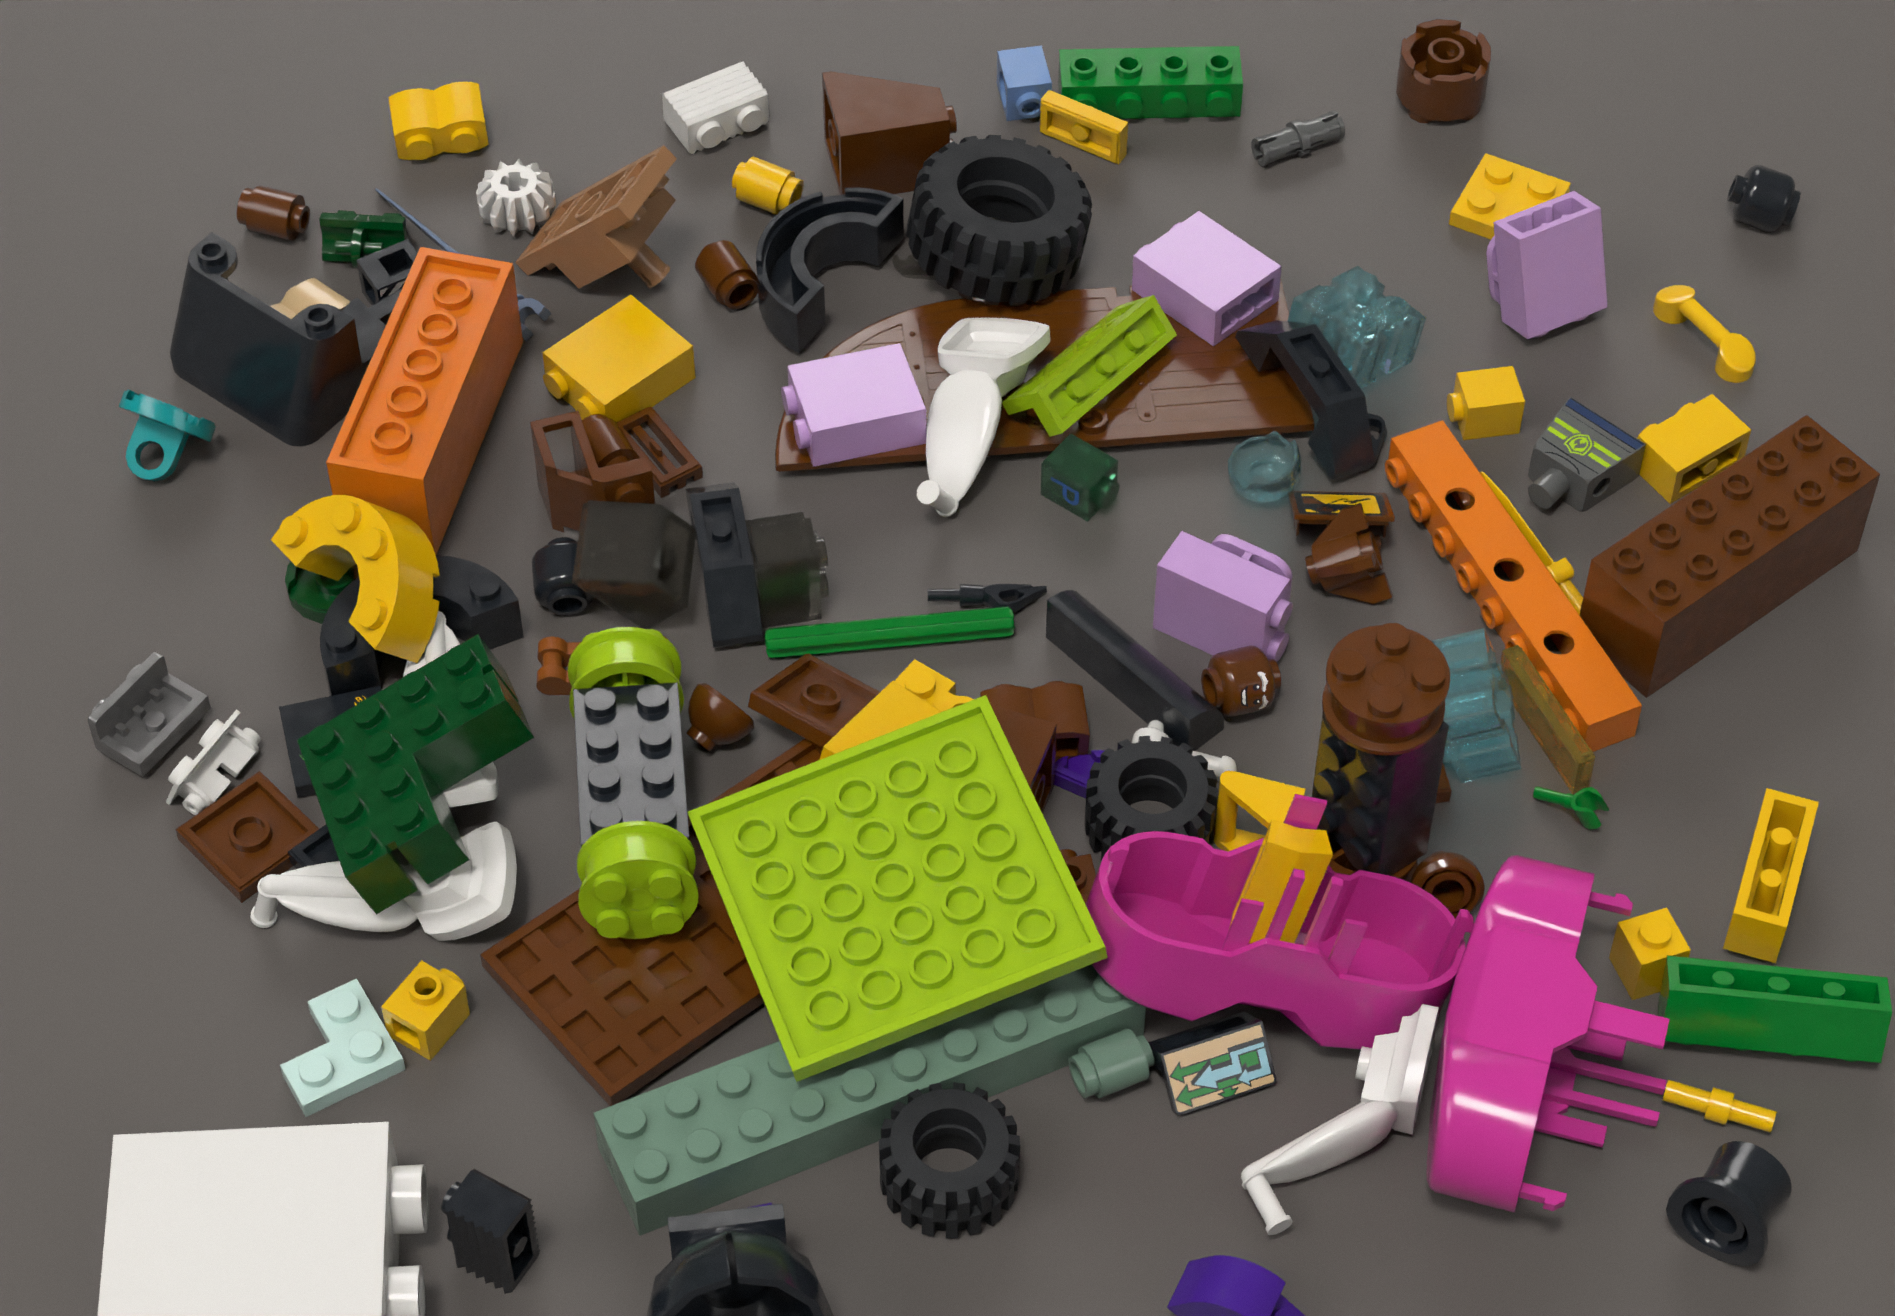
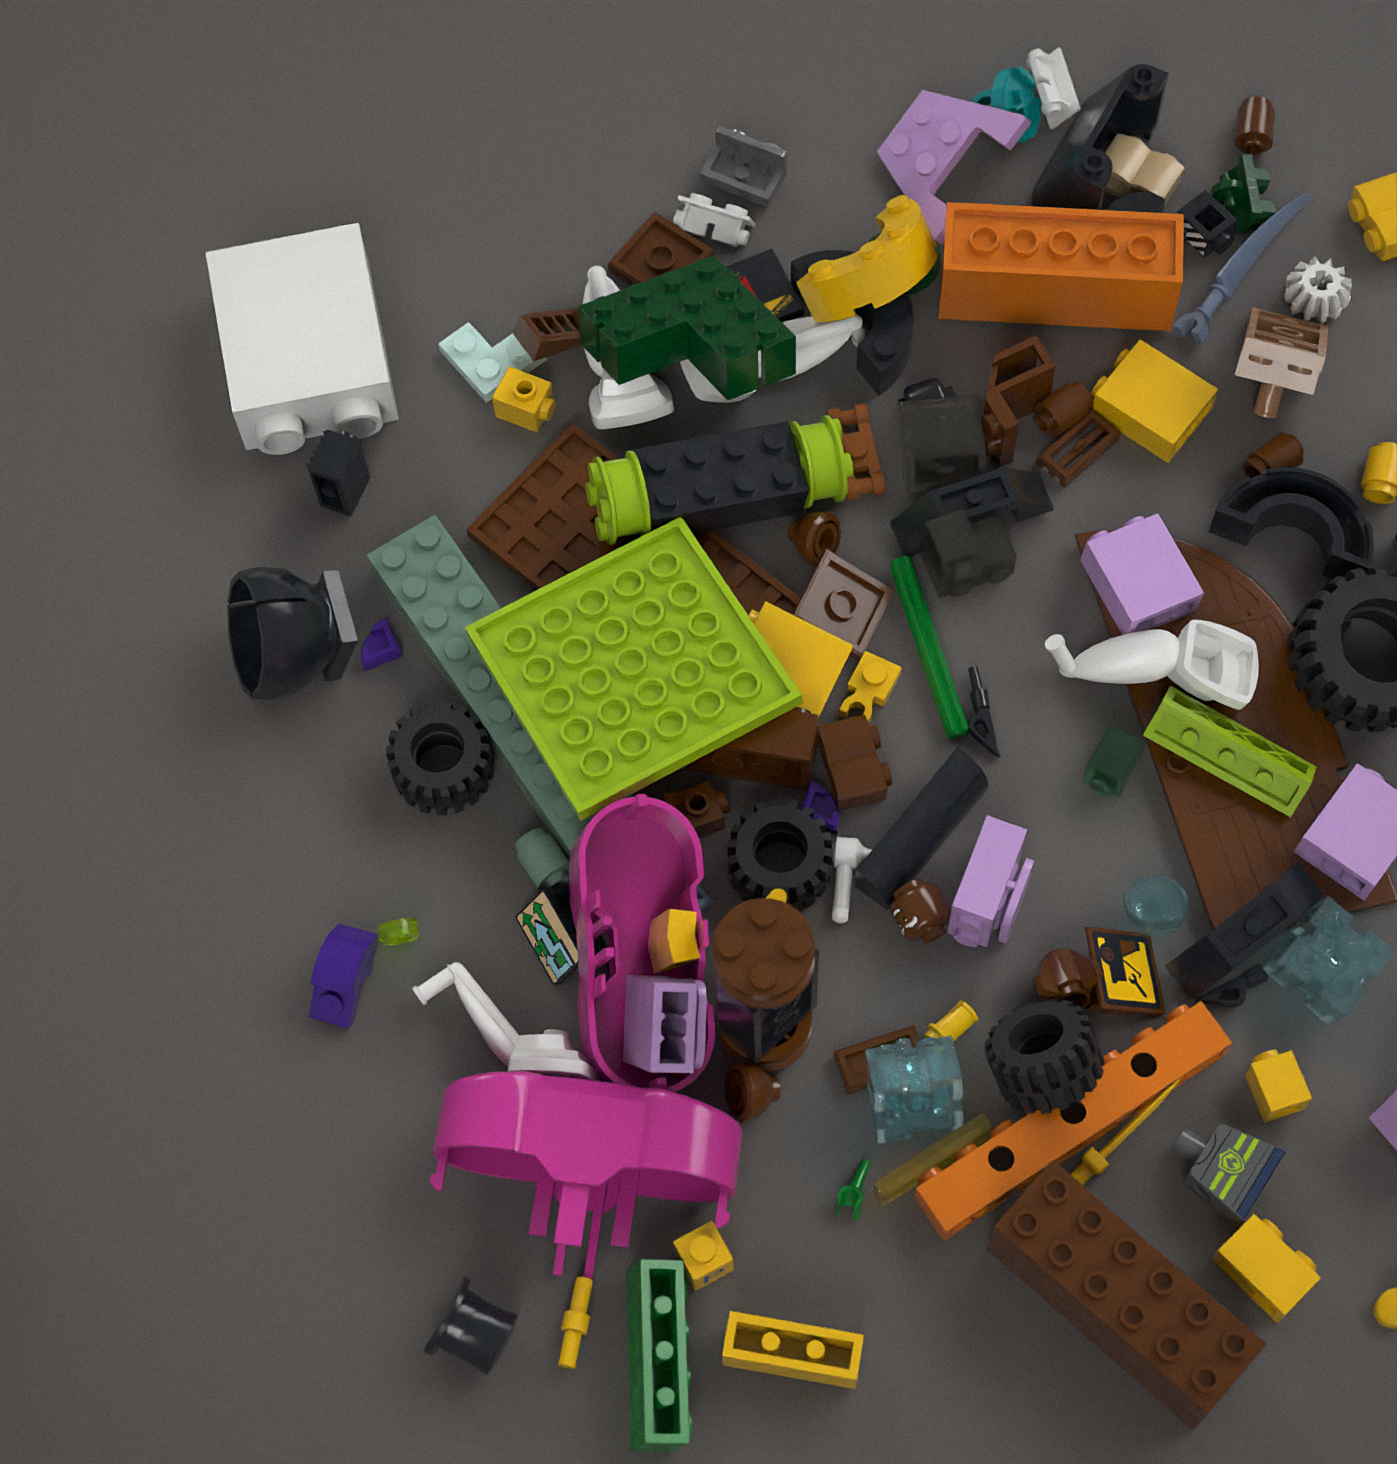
camera: 85 degrees right, 15 degrees up
(162, 381) = (1053, 85): none -> white hinge
(185, 506) = (932, 142): none -> lavender wing
(336, 962) = (540, 346): none -> reddish brown slope
(1184, 1240) = (398, 931): none -> clear neon green tile
(1402, 900) = (664, 1023): none -> lavender brick
(1422, 553) = (1044, 1056): none -> black tyre

